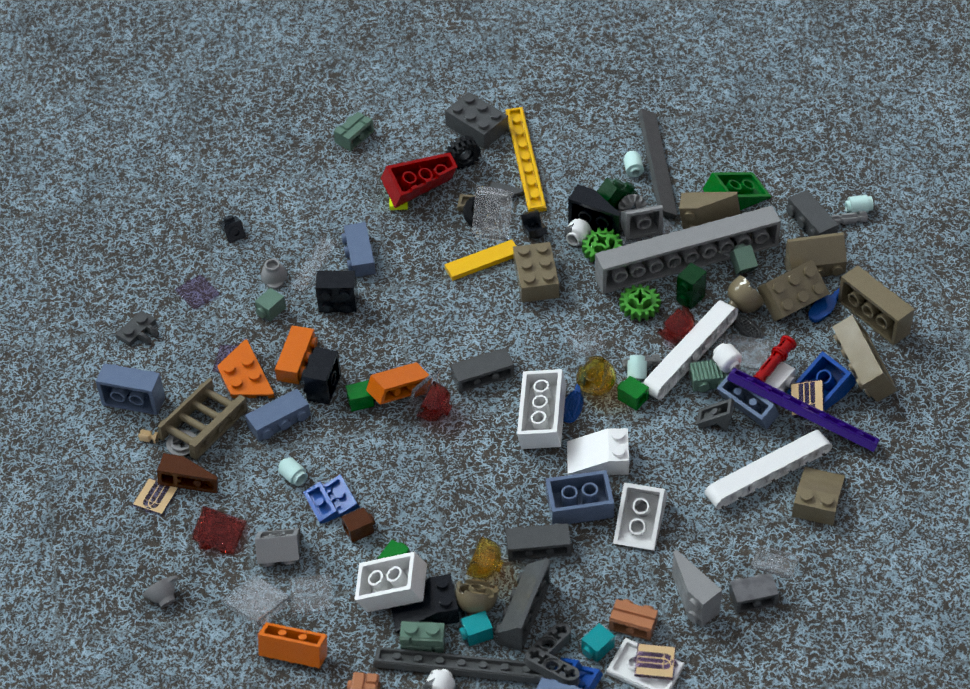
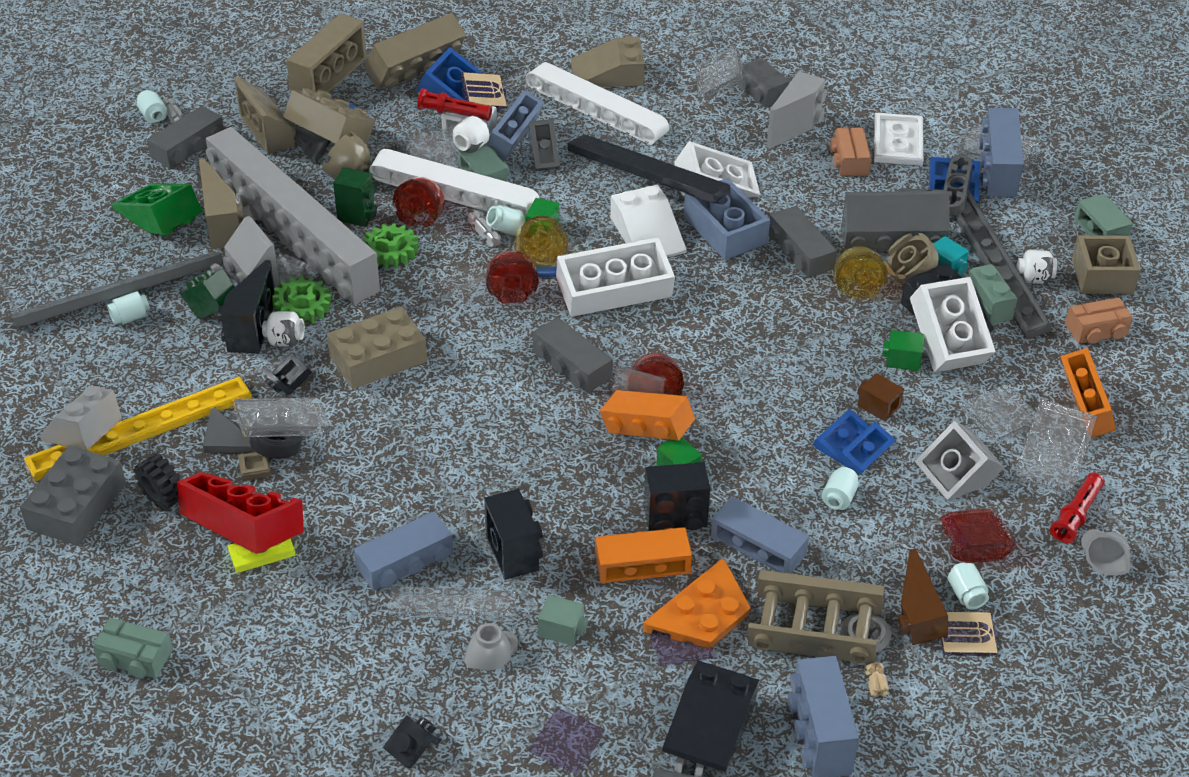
camera: 115 degrees left, 5 degrees down
(166, 347) = (711, 715): none -> black slope
(182, 505) = (968, 585): none -> light aqua brick
(203, 591) = (1091, 486): none -> red pin
(480, 260) = (366, 417): yellow tile -> none
(532, 129) = (84, 419): none -> light grey slope
(572, 353) = (511, 277): none -> clear red cylinder
(597, 643) = (898, 169): teal brick -> none
(654, 463) = (649, 168): none -> black tile
(655, 661) = (890, 128): piece -> none
(743, 259) = (291, 166): sand green brick -> none
(803, 409) = (510, 82): dark purple tile -> none

